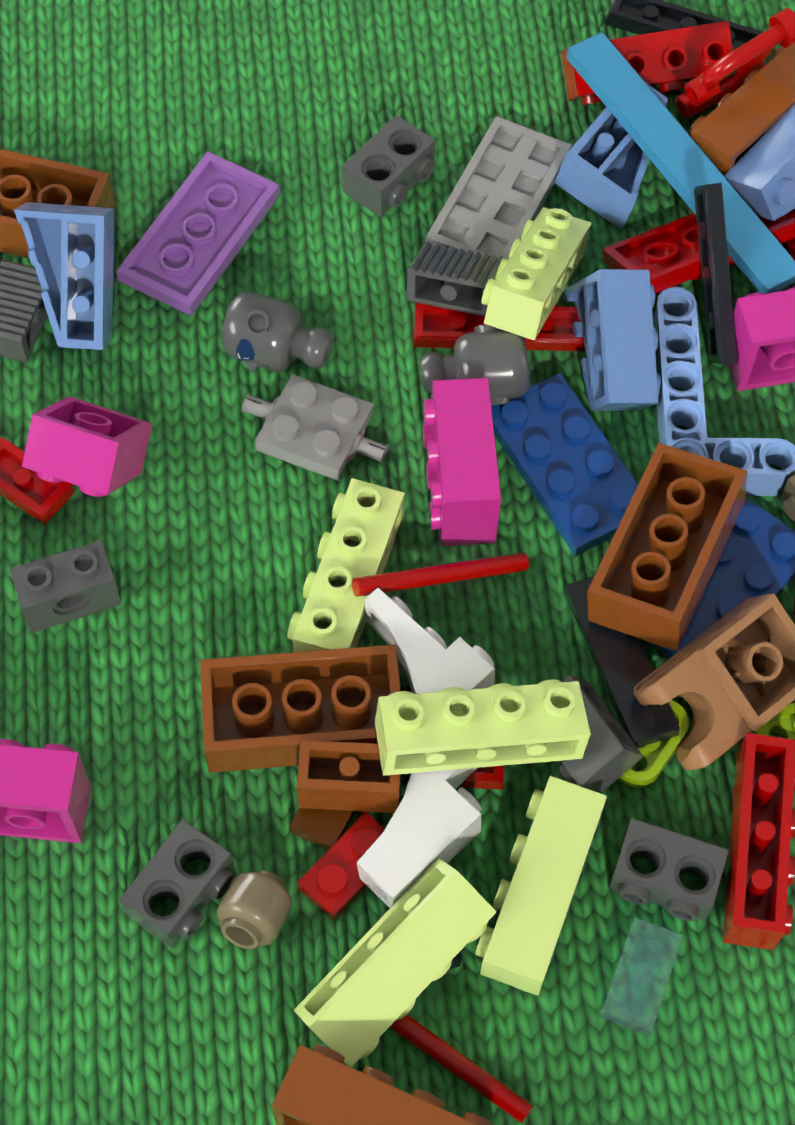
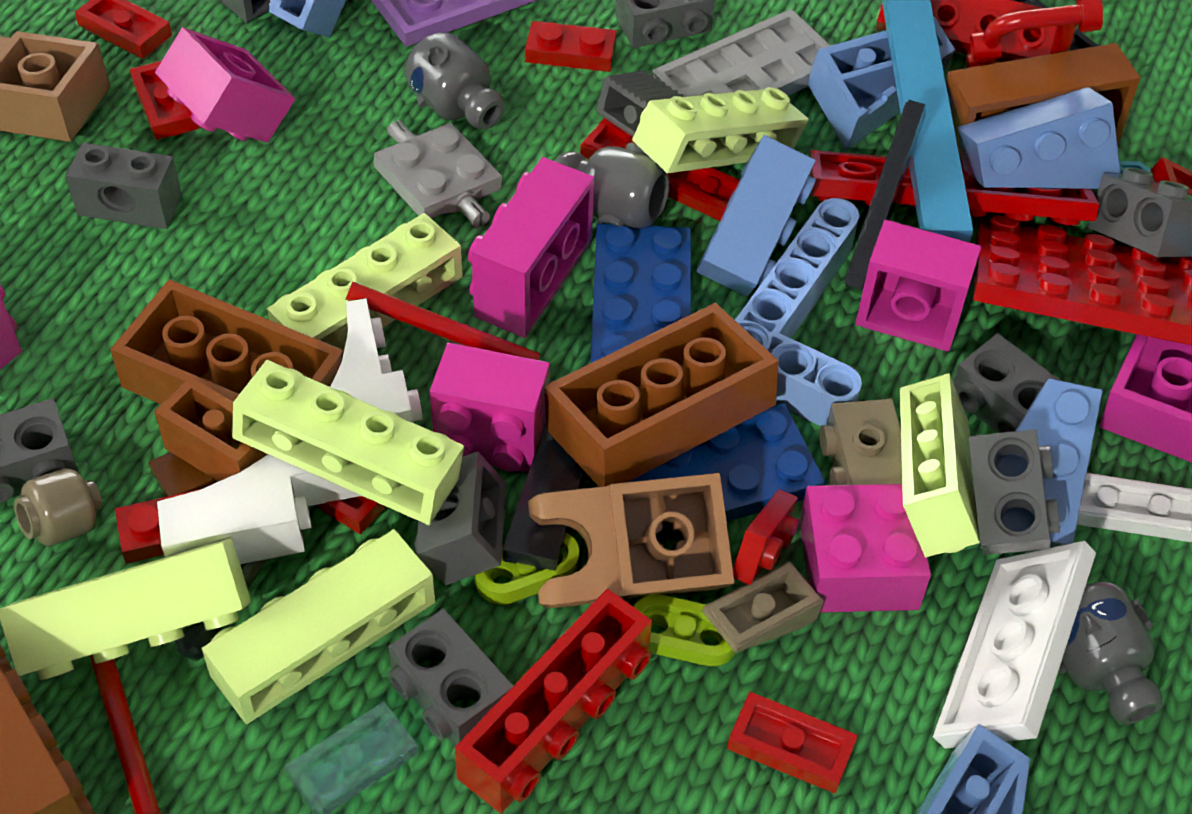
camera: 30 degrees right, 10 degrees down
(332, 243) = (570, 46): none -> red plate
(540, 628) = (491, 404): none -> dark pink brick

